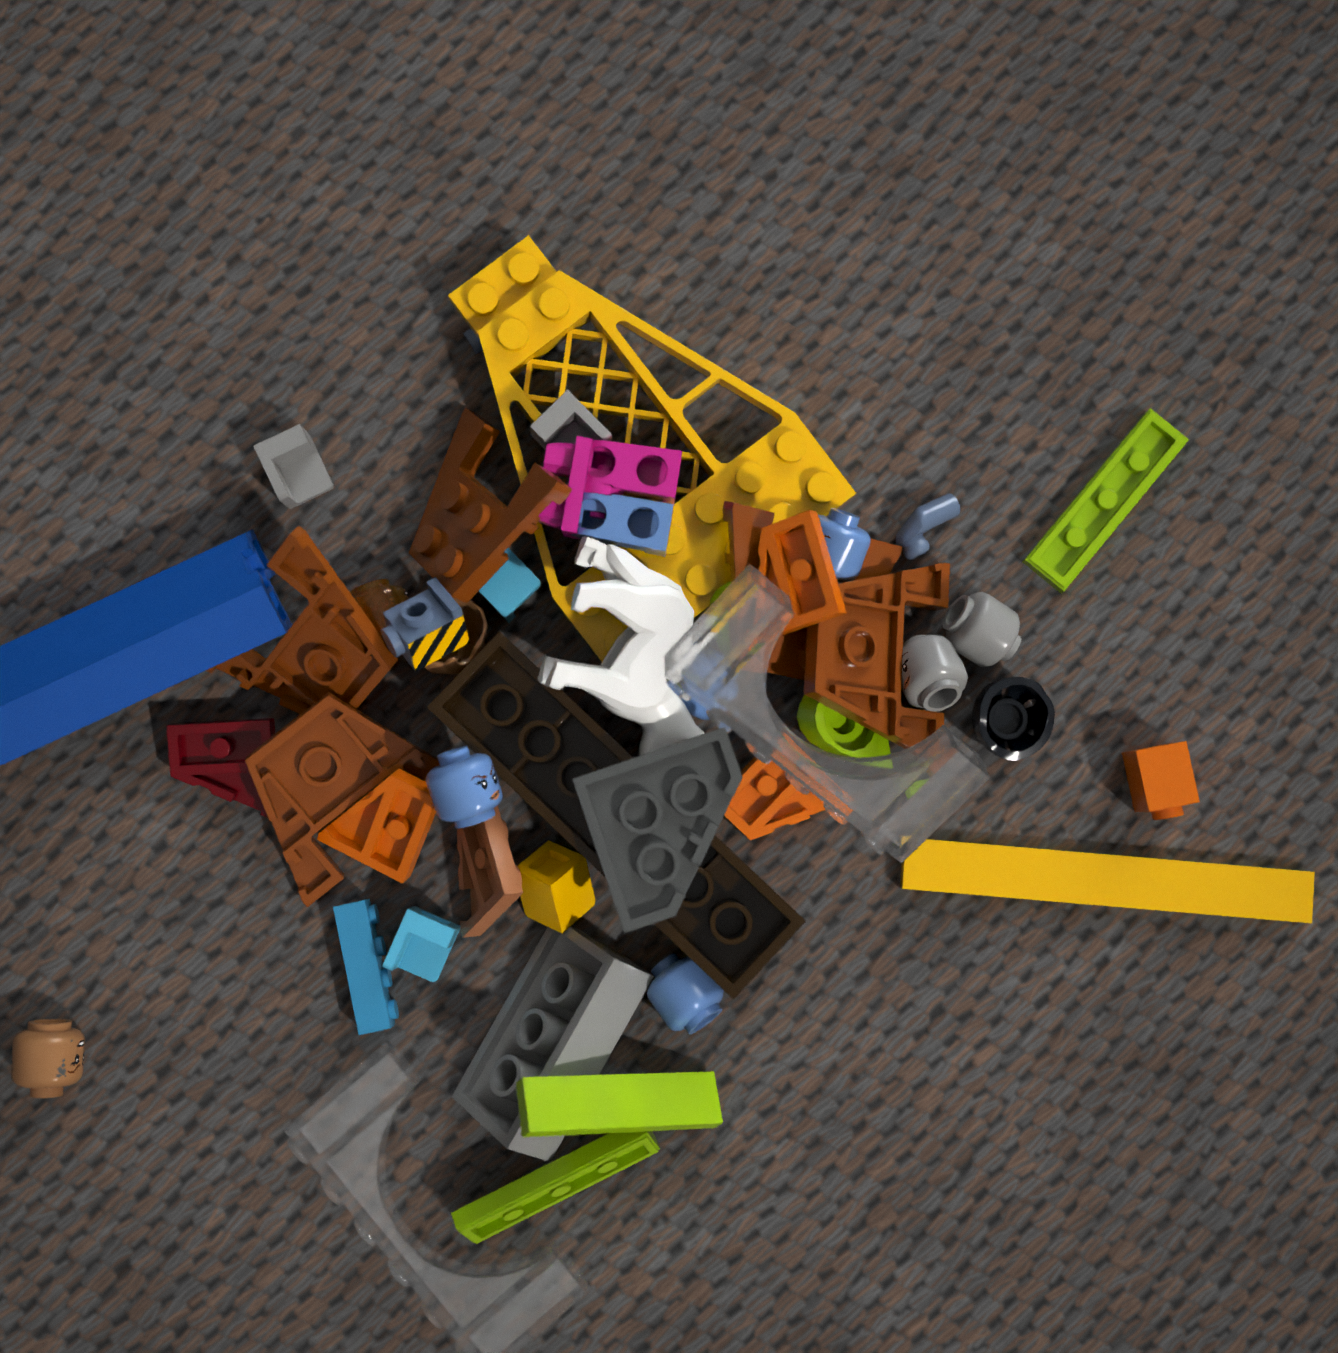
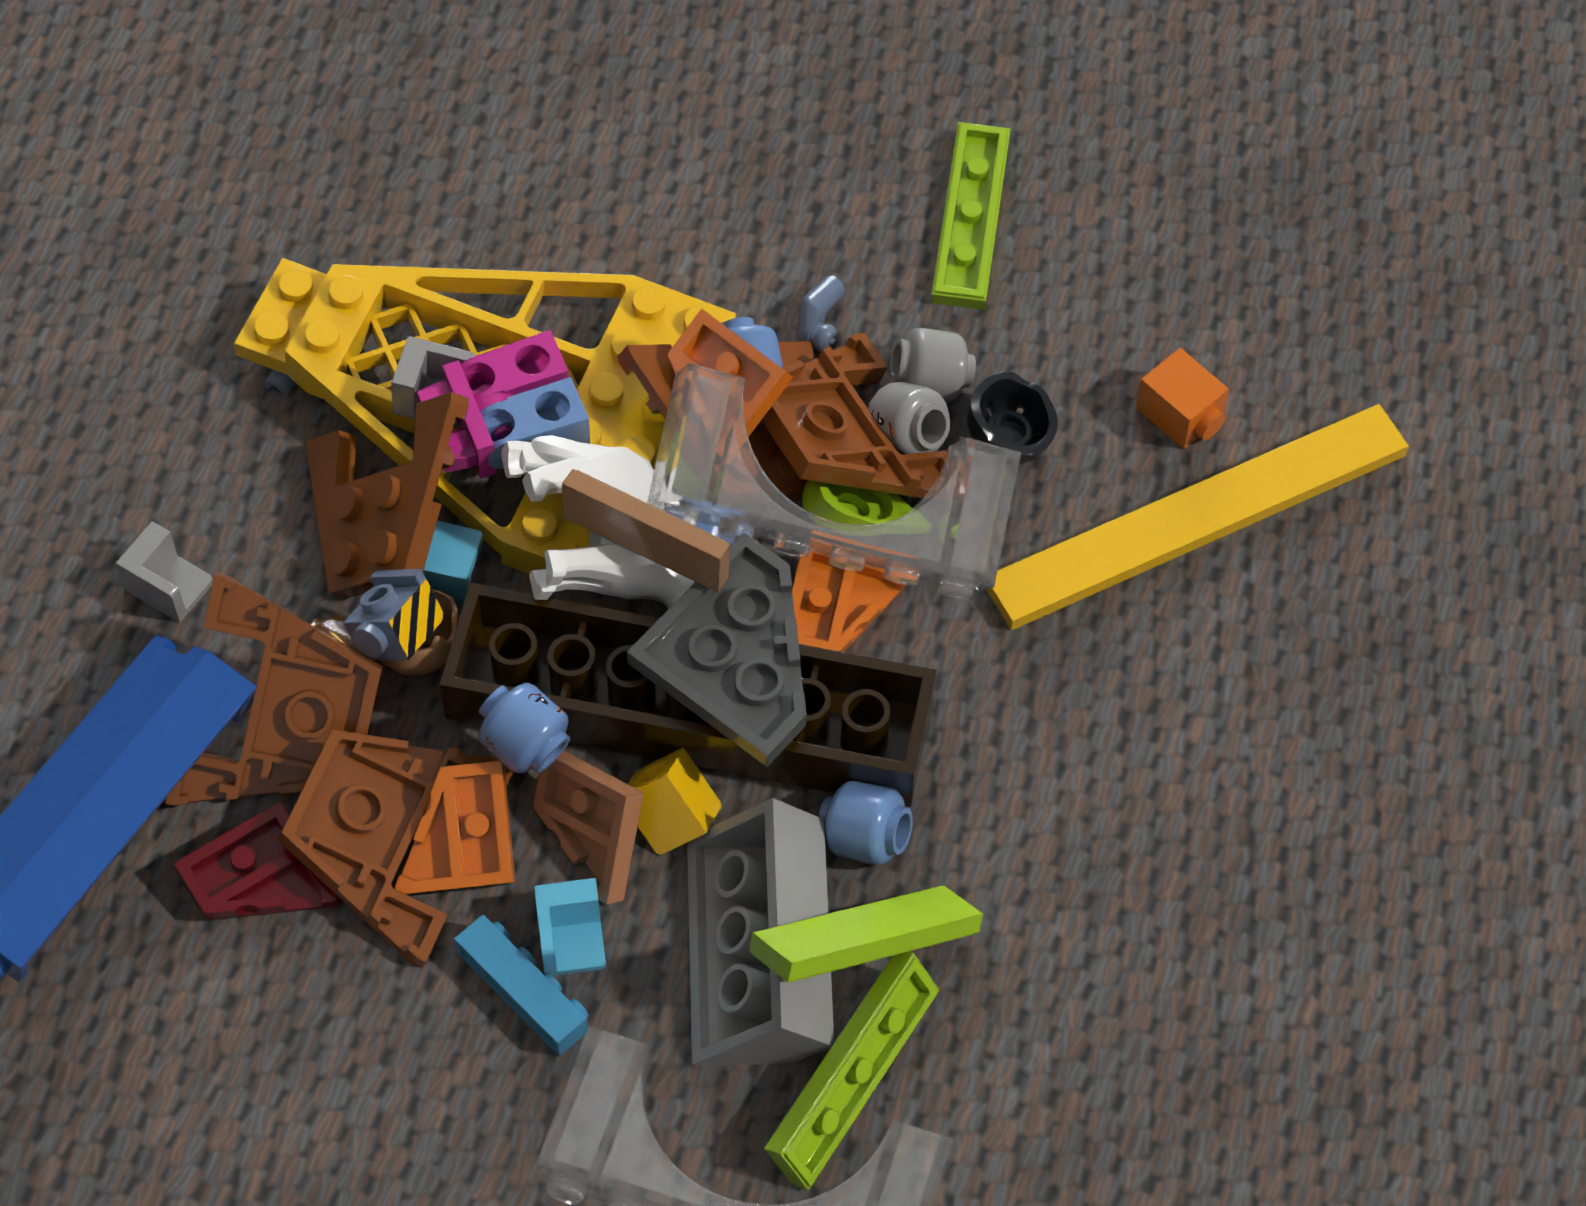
camera: 30 degrees left, 25 degrees down
(642, 691) = (645, 530): none -> medium nougat tile

